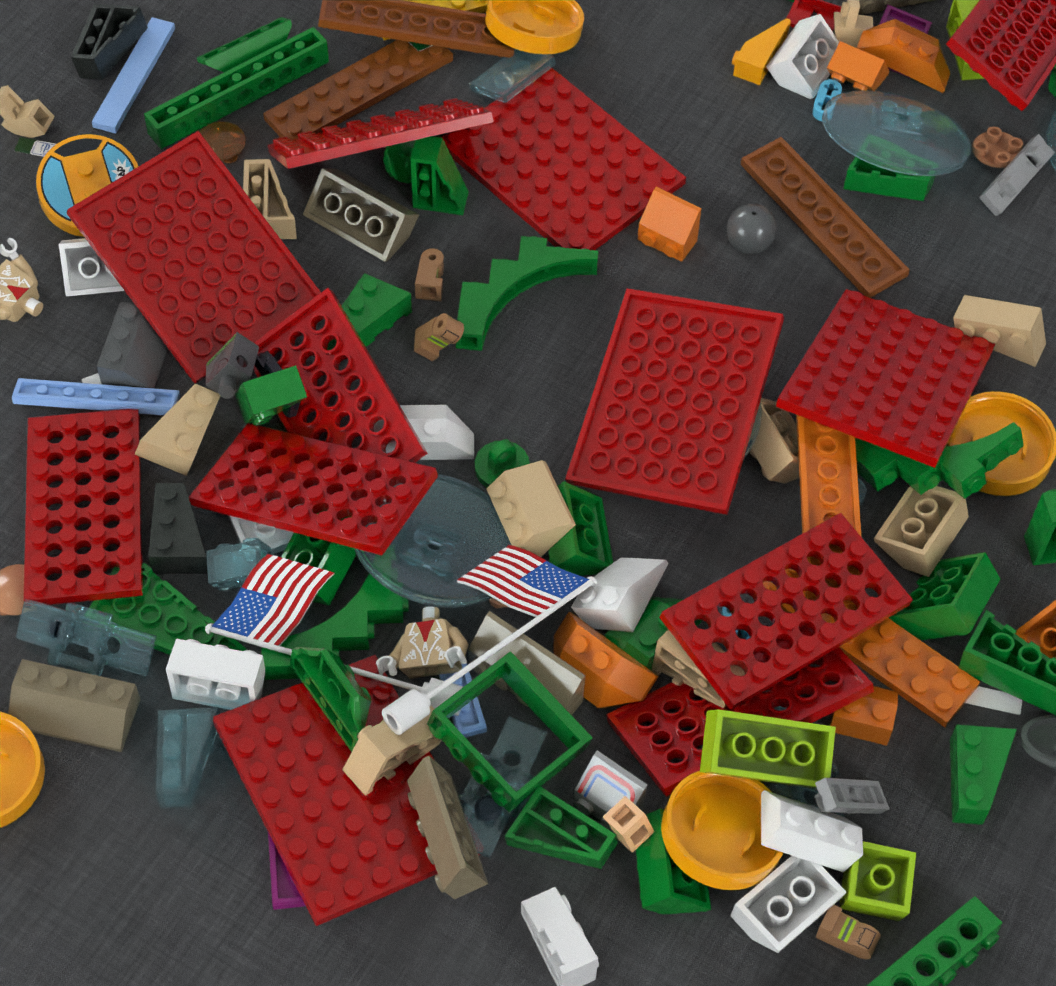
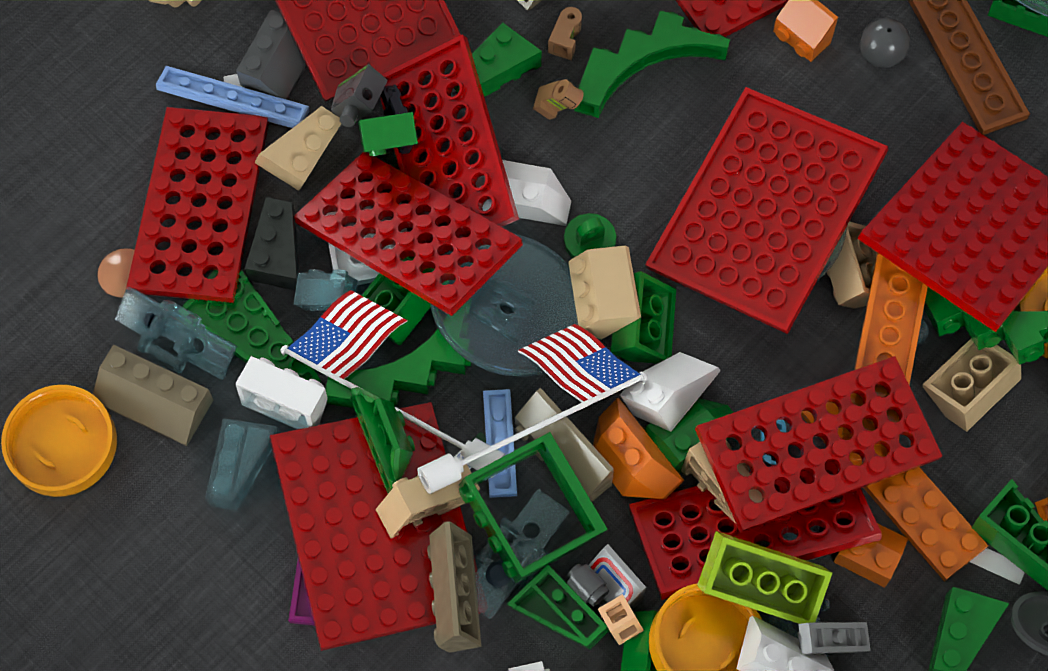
camera: 15 degrees right, 10 degrees up
(427, 648) = (477, 407): tan torso -> none
(585, 797) = (587, 584): none -> dark grey brick
(949, 598) = (981, 458): green wedge -> none

